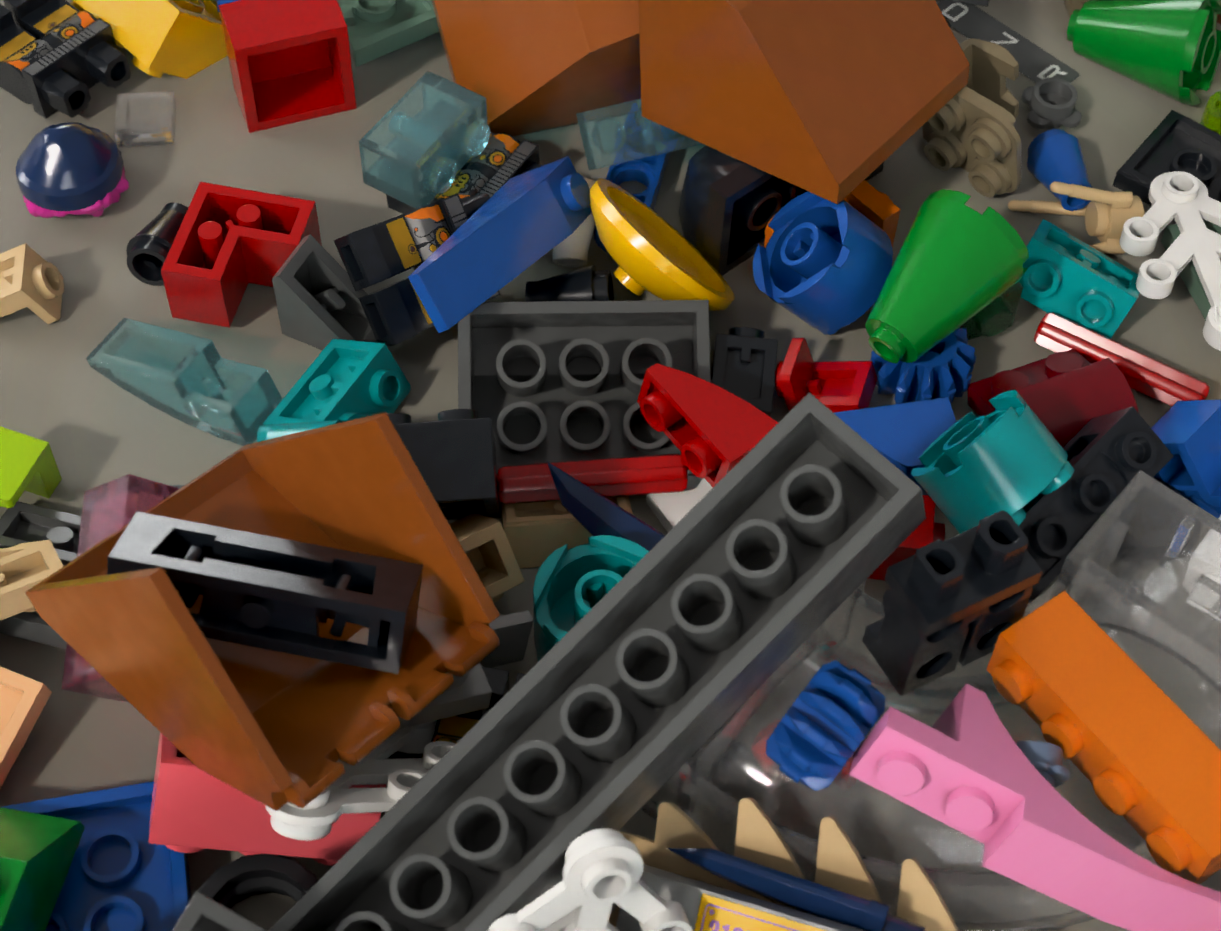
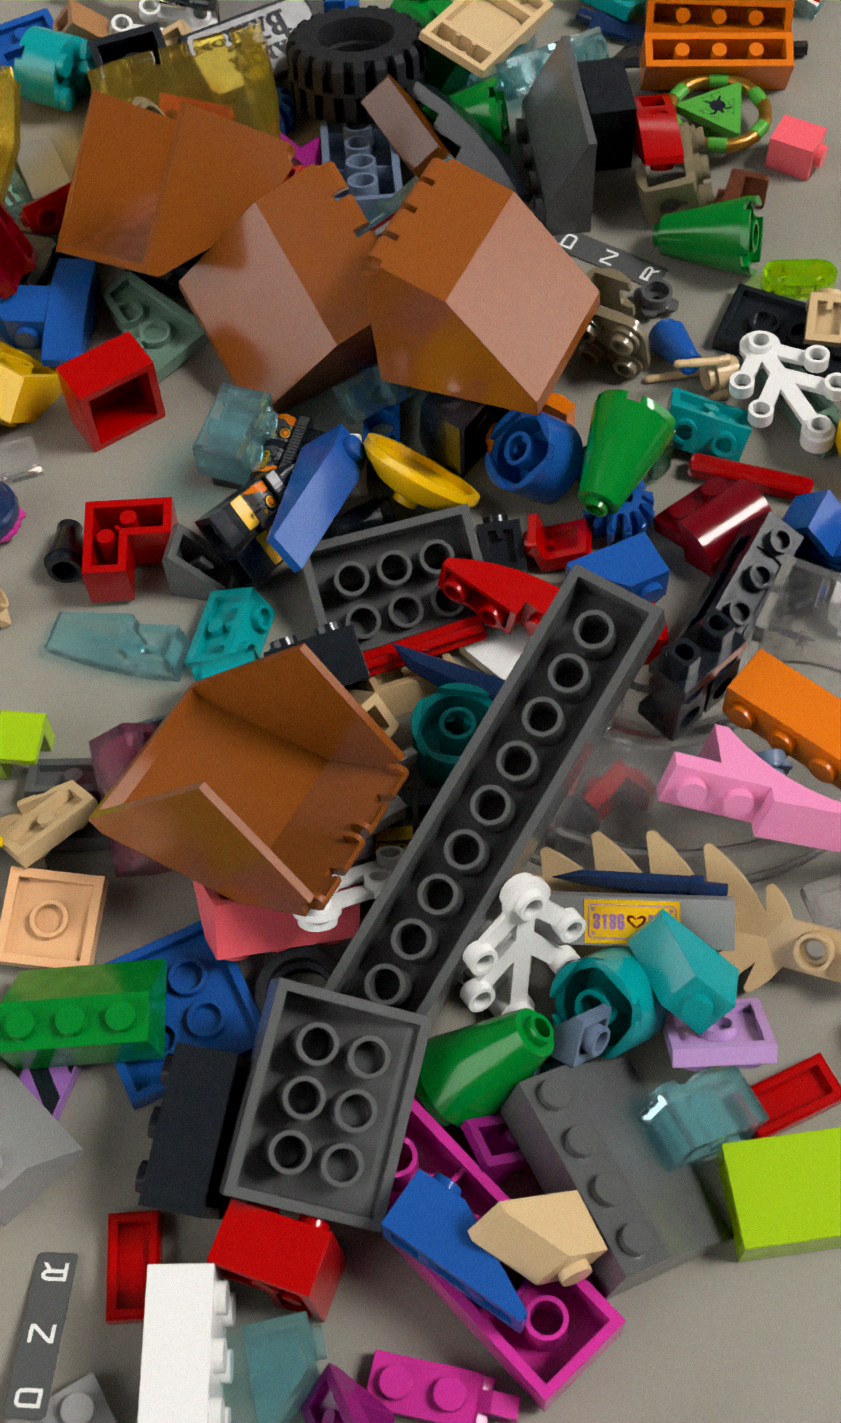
camera: 10 degrees left, 5 degrees up
(279, 589) = (258, 774): black brick -> none
(825, 725) = (634, 773): blue gear -> none
(992, 463) = (688, 573): teal brick -> none

